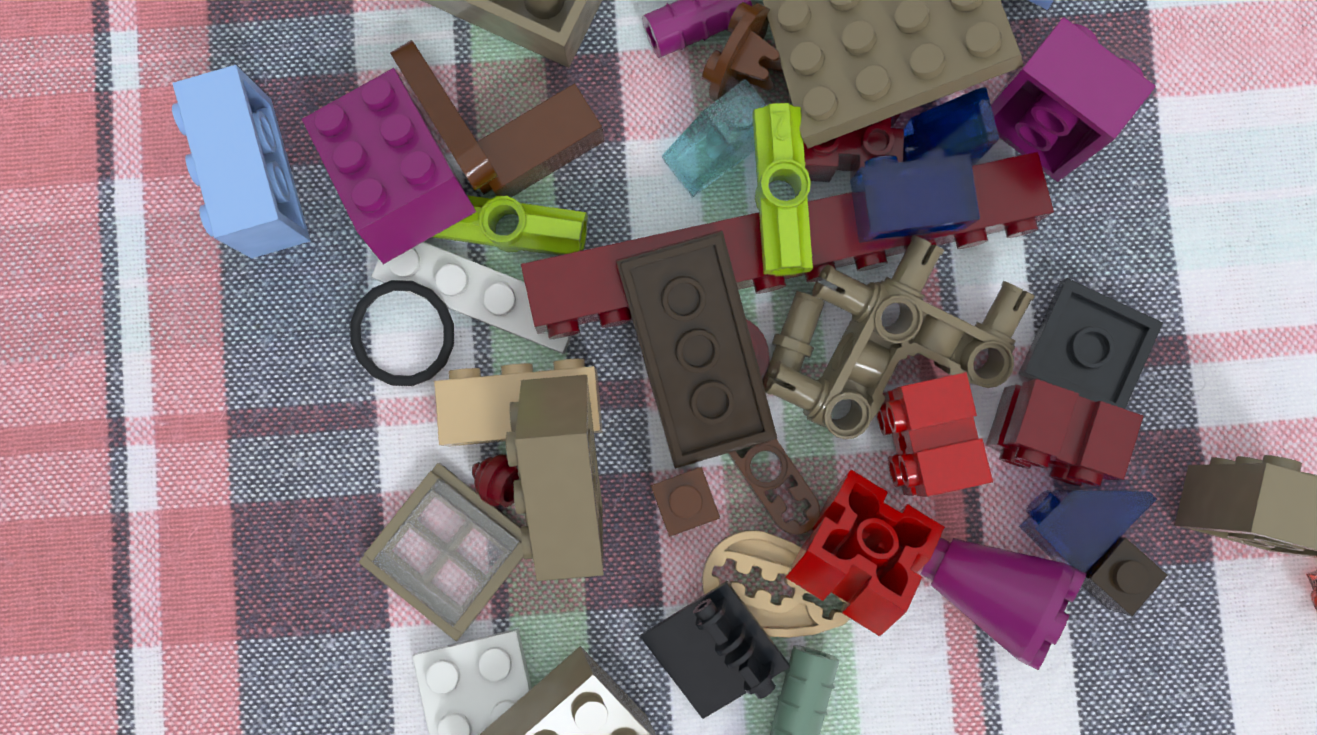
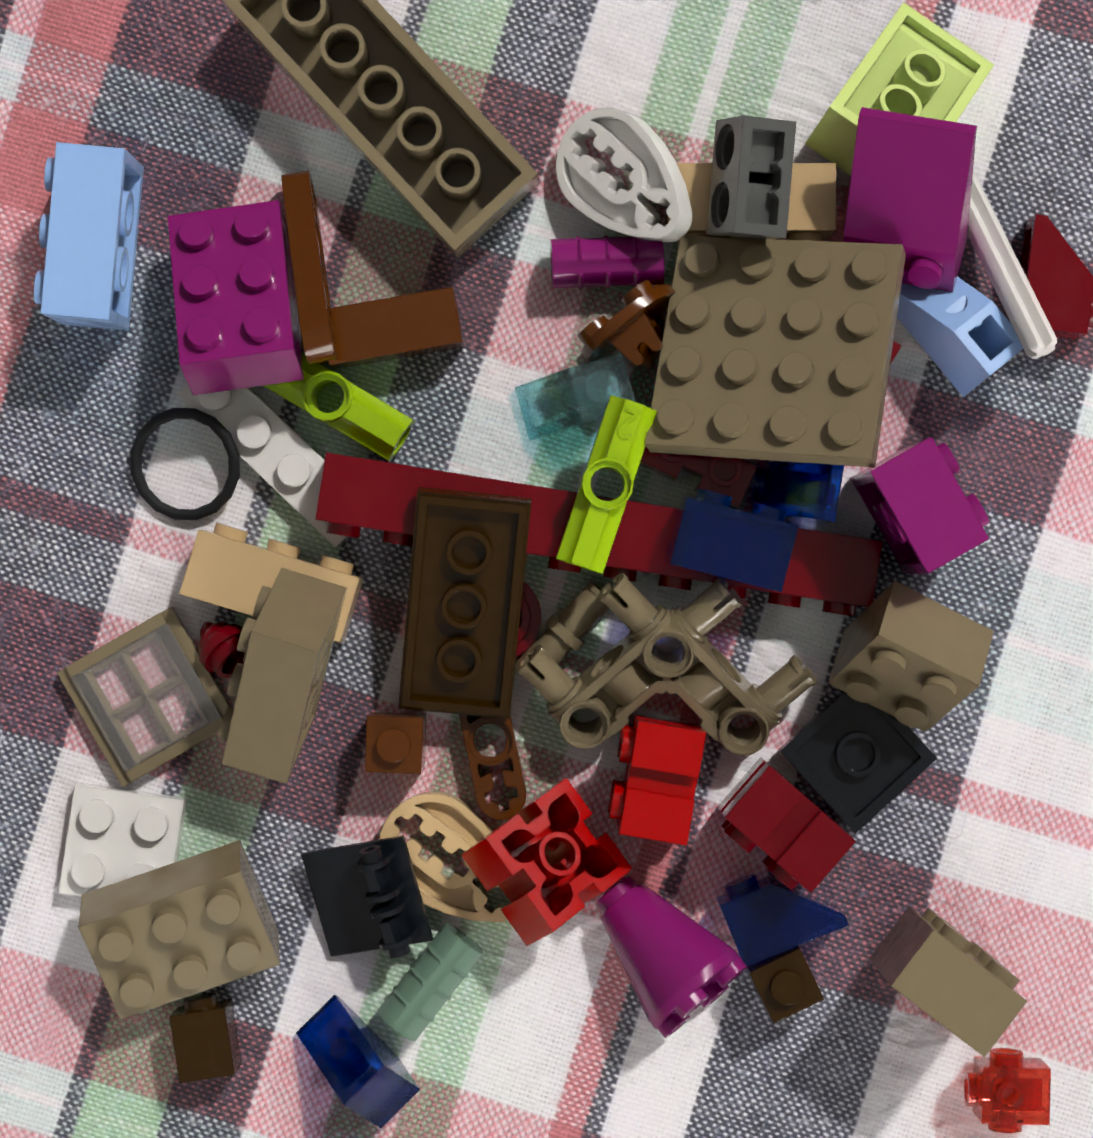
camera: 20 degrees right, 5 degrees up
(1111, 237) = (911, 657): none -> dark tan brick

